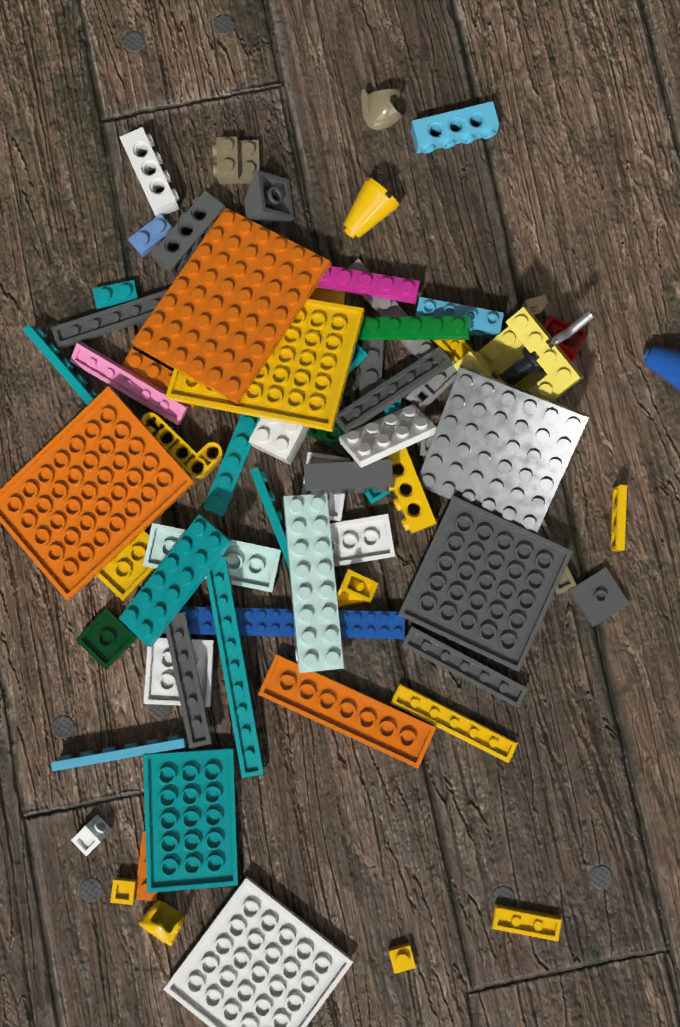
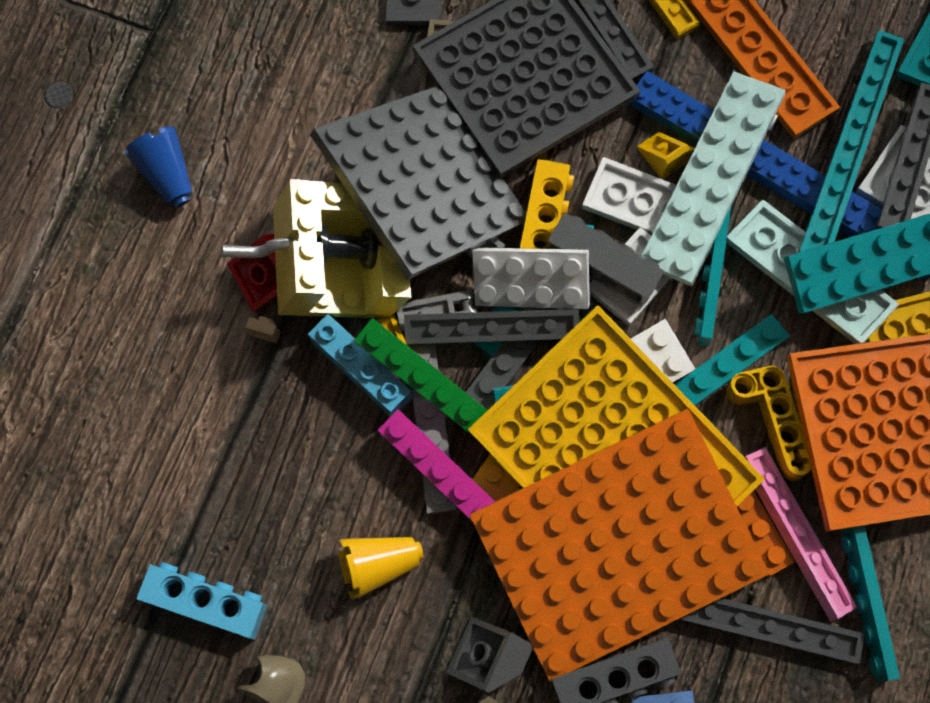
camera: 145 degrees left, 10 degrees down
(115, 294) = (752, 658): teal plate -> none
(618, 520) = (338, 57): yellow tile -> none

